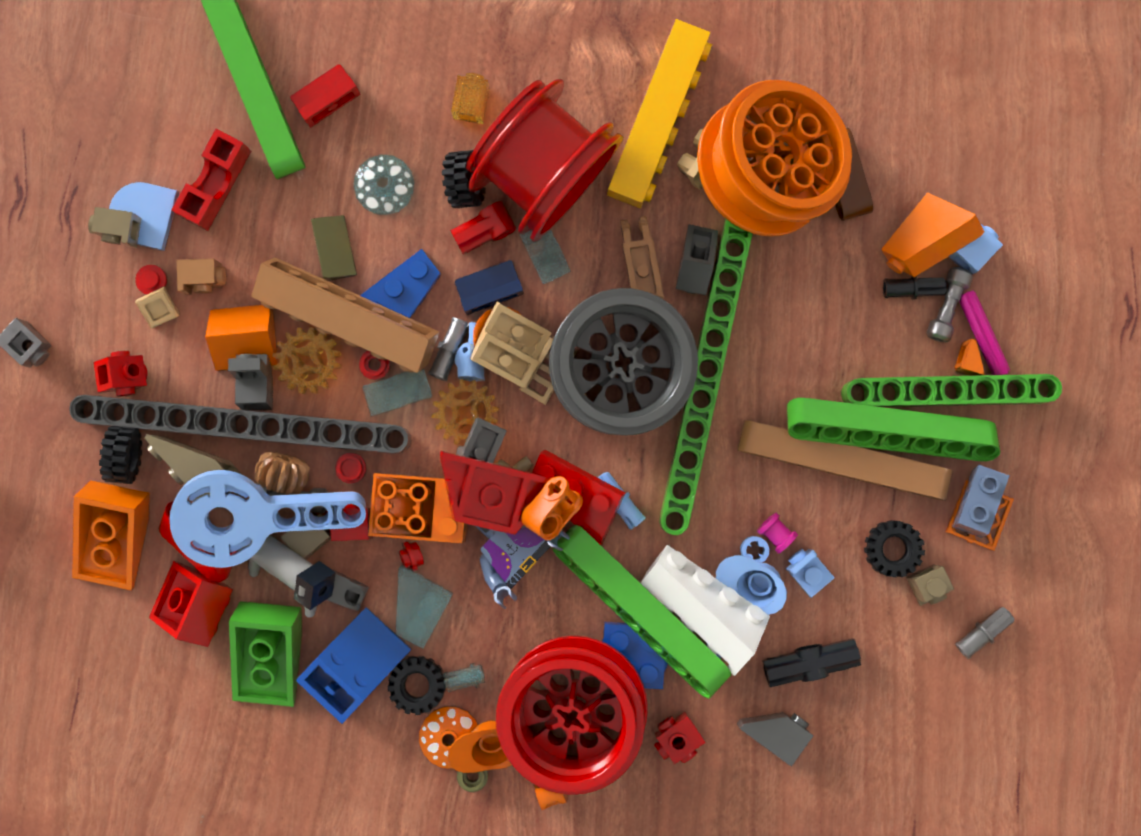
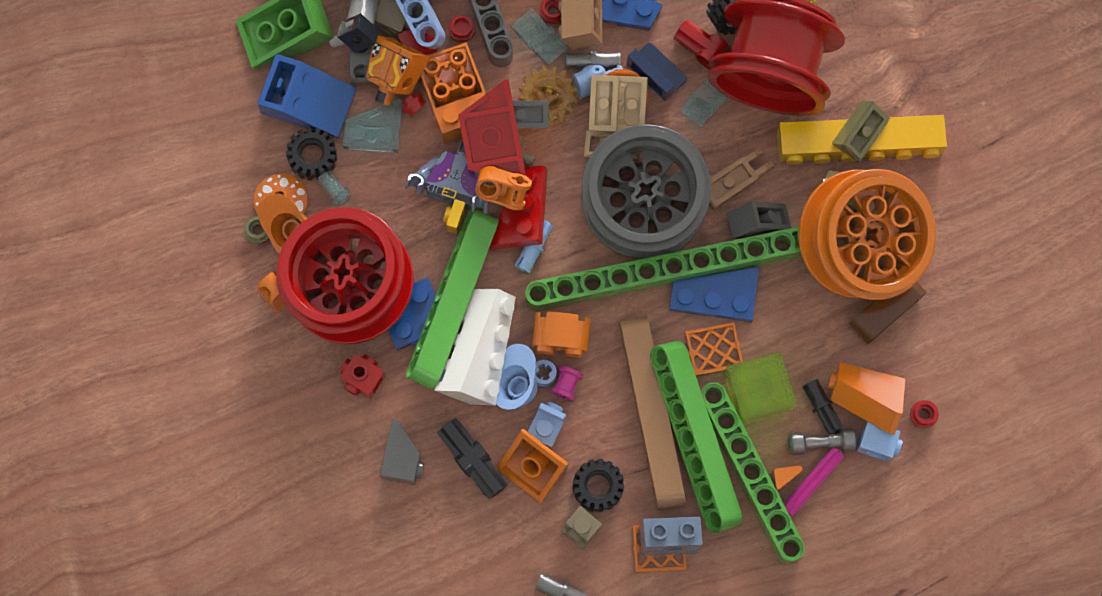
camera: 60 degrees right, 10 degrees down
(367, 561) = (394, 68): none -> orange torso
(552, 568) = (454, 216): none -> yellow plate
(654, 110) = (861, 130): none -> olive slope
(729, 516) = (561, 334): none -> orange brick
(753, 336) = (717, 295): none -> blue wing
(784, 362) = (710, 330): none -> orange window
(846, 604) = (532, 466): none -> orange slope
(871, 341) = (760, 388): none -> clear neon green brick
(972, 184) = (931, 410): none -> red plate

